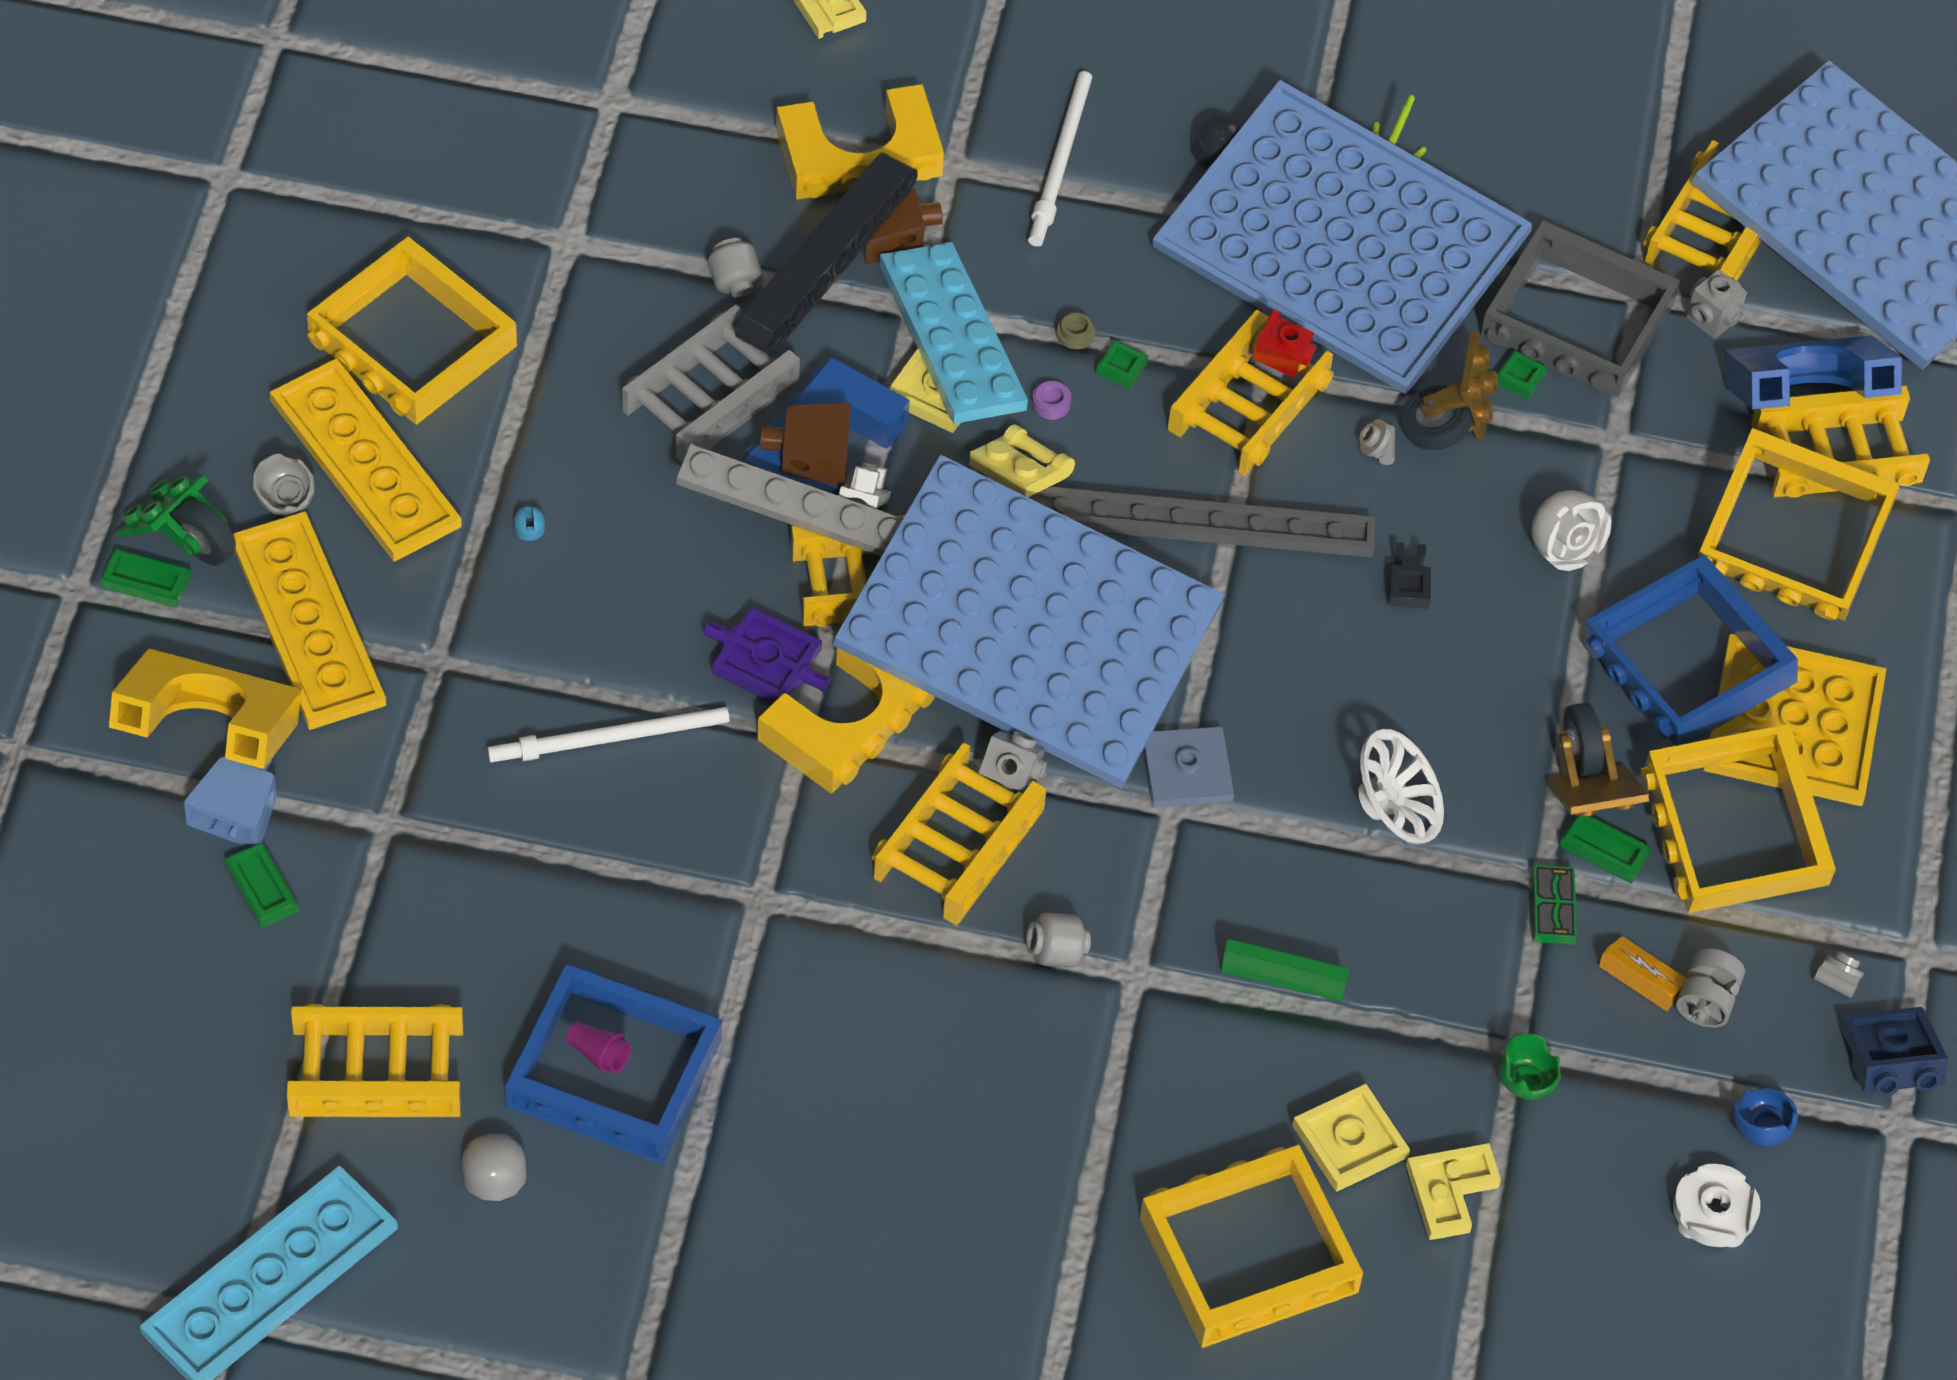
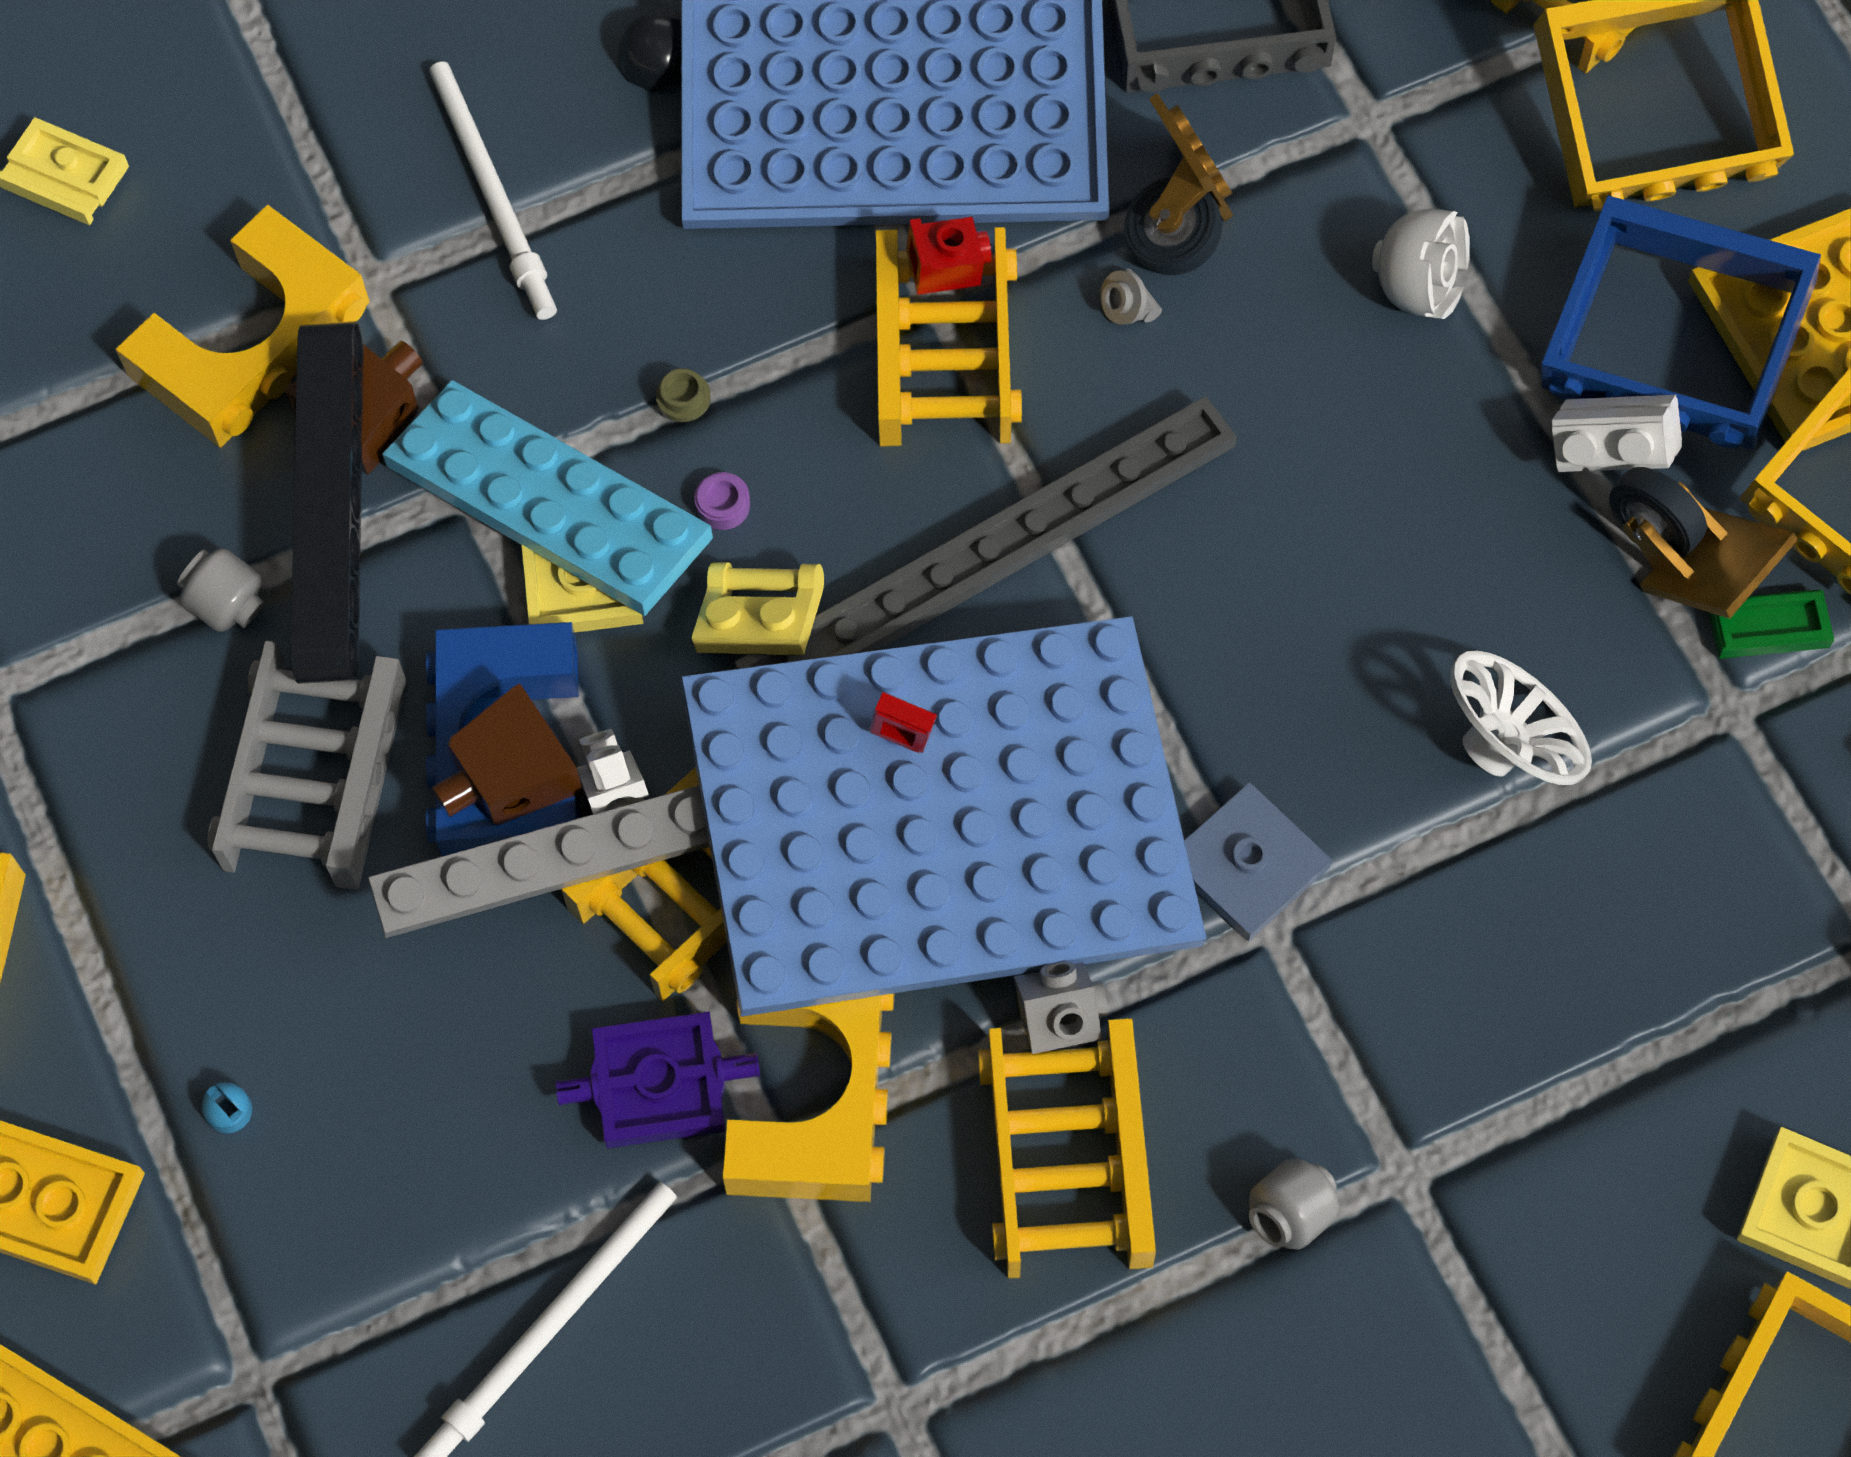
camera: 30 degrees left, 10 degrees up
(1039, 551) = (902, 723): none -> red tile
(1122, 365) = (767, 400): green tile -> none
(1285, 969) = (1572, 1045): green tile -> none
(1409, 580) = (1301, 449): black plate -> none
(1521, 375) = (1212, 109): green tile -> none
(1554, 905) = (1779, 737): tile -> none
(1596, 682) = (1617, 433): none -> white brick

